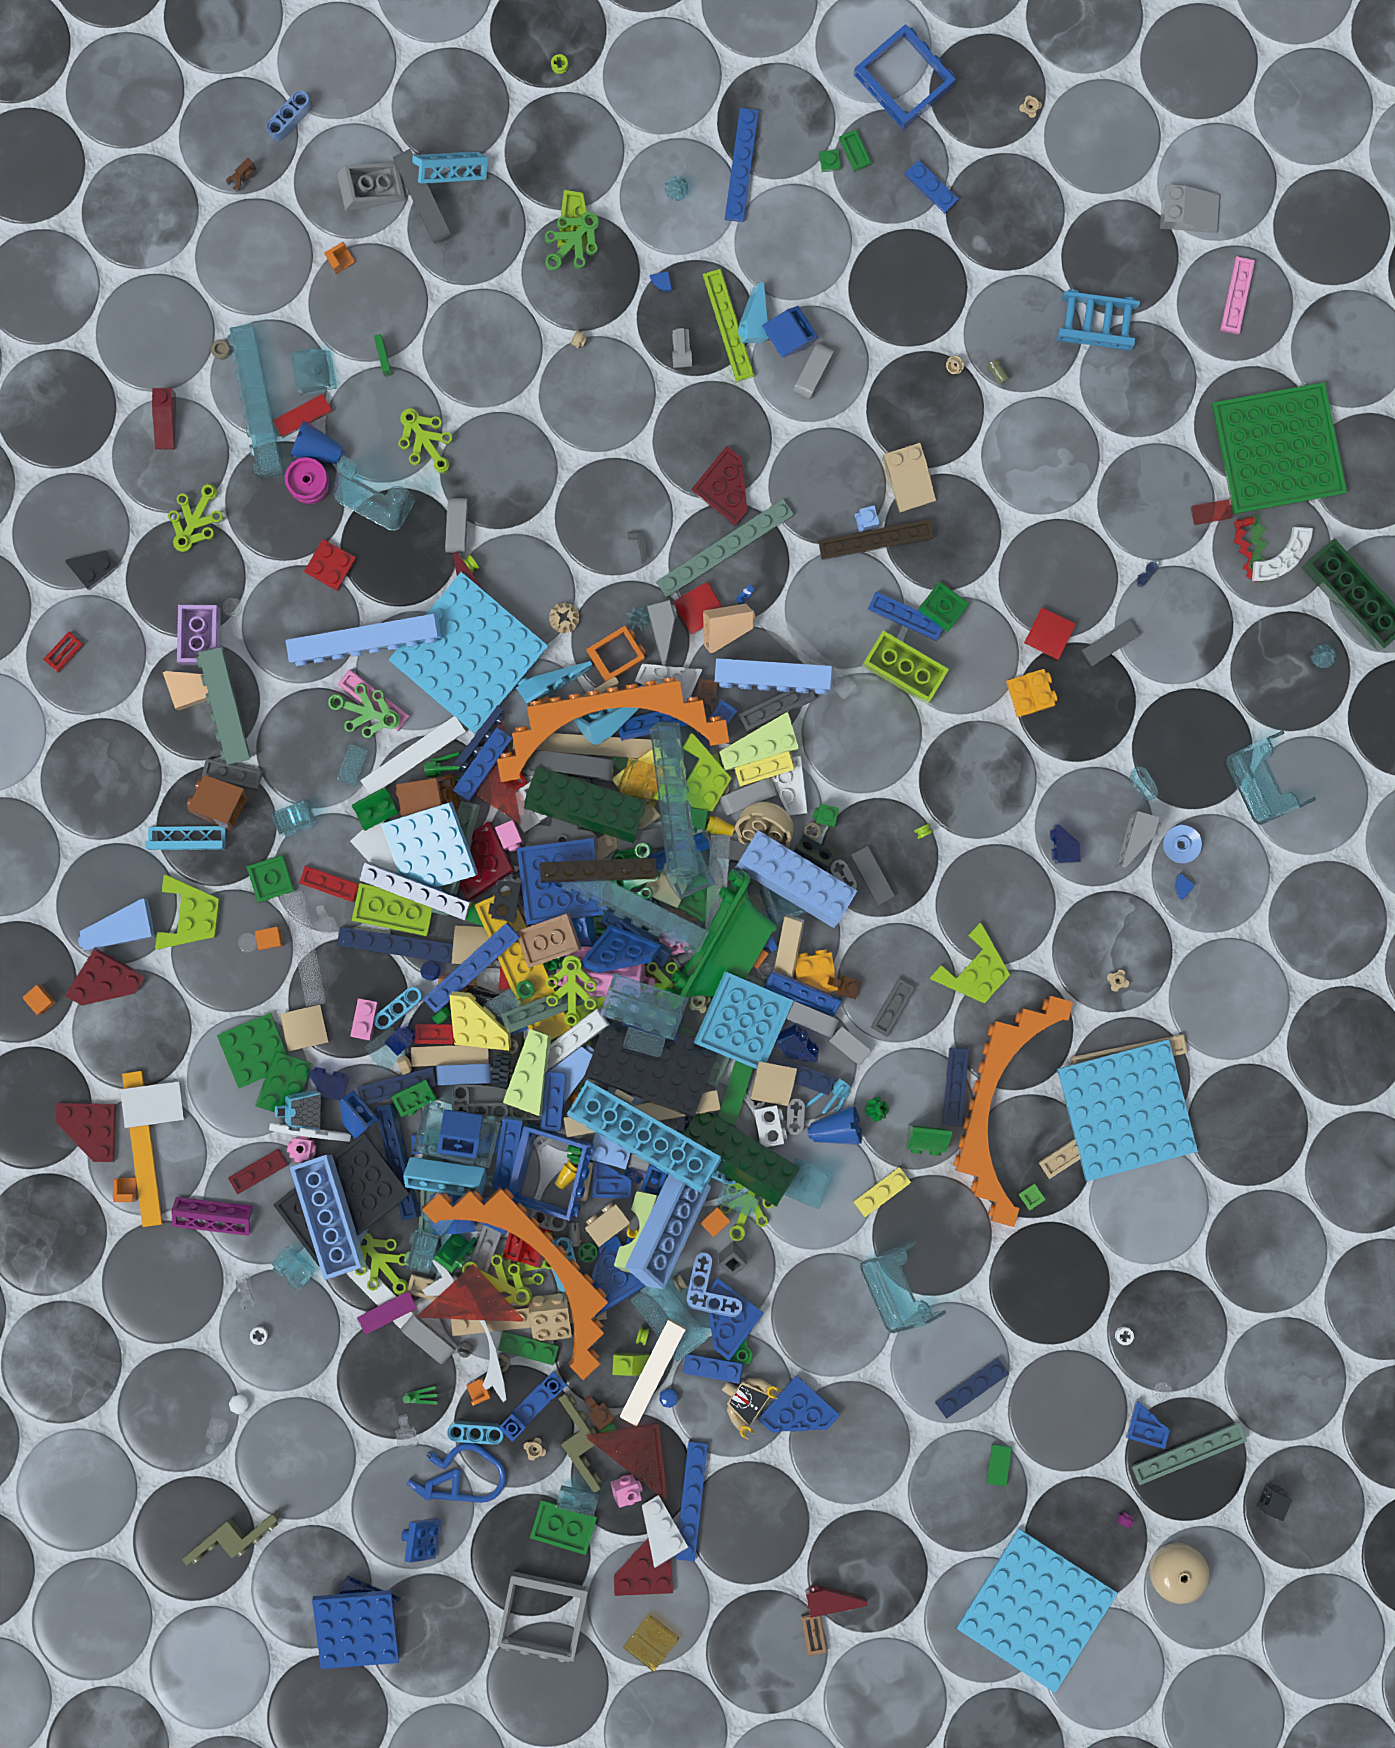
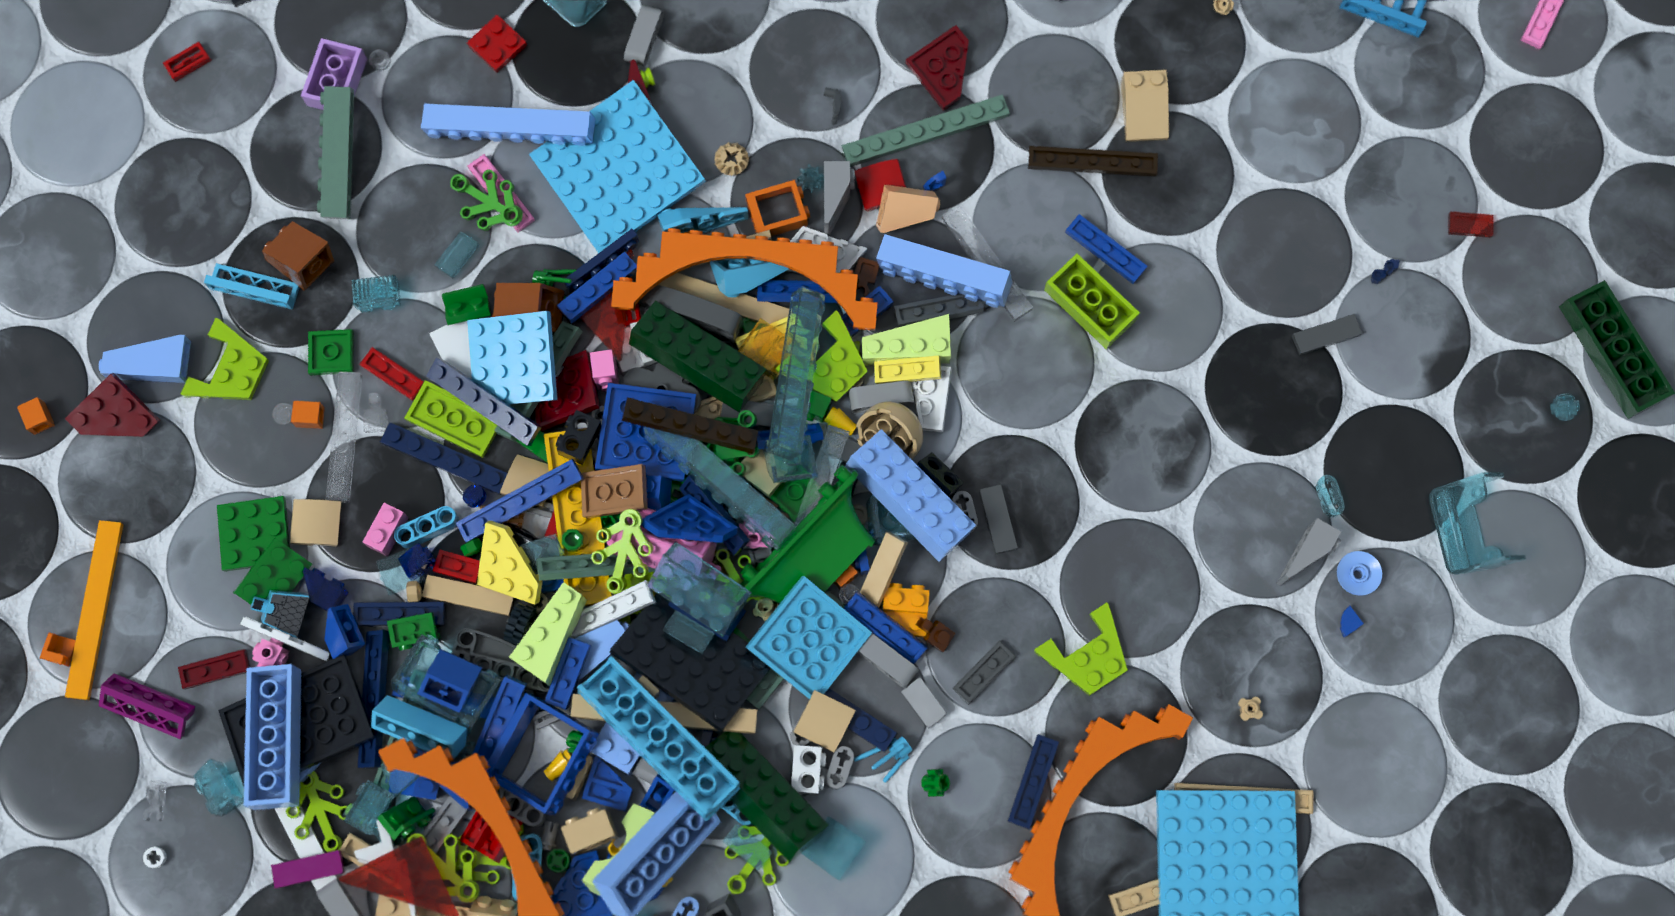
camera: 15 degrees right, 10 degrees down
(90, 1128) = (44, 571): dark red plate -> none
(151, 1104) = (119, 562): white tile -> none
(185, 689) = (301, 129): light nougat slope -> none
(232, 773) = (336, 236): dark grey tile -> none
(413, 755) = (527, 261): white tile -> none
(464, 1074) = (476, 618): medium blue beam -> none
(633, 1175) = (636, 785): clear blue tile -> none
(714, 1221) = (714, 864): orange panel -> none
(735, 1092) = (779, 721): green tile -> none
(797, 1045) = (863, 684): clear blue slope -> none
(813, 825) = (946, 447): dark tan bush -> none
(826, 815) = (962, 439): green brick -> none
(837, 1128) = (885, 792): blue cone -> none
(867, 519) = (1088, 136): light blue brick -> none
(882, 1192) = (917, 882): light yellow plate -> none
(923, 831) = (1068, 484): lime bush -> none
(928, 1139) = (986, 832): green slope -> none
(943, 606) = (1150, 248): green tile -> none
(998, 371) = (1269, 22): olive pin -> none
(1031, 693) = (1226, 365): light orange plate -> none
(1049, 633) = (1261, 306): red slope -> none
(1066, 847) = (1225, 542): clear blue slope -> none
(1255, 555) = (1508, 282): piece -> none
(1279, 448) = (1560, 175): green plate -> none
(1287, 559) = (1544, 294): white tile -> none

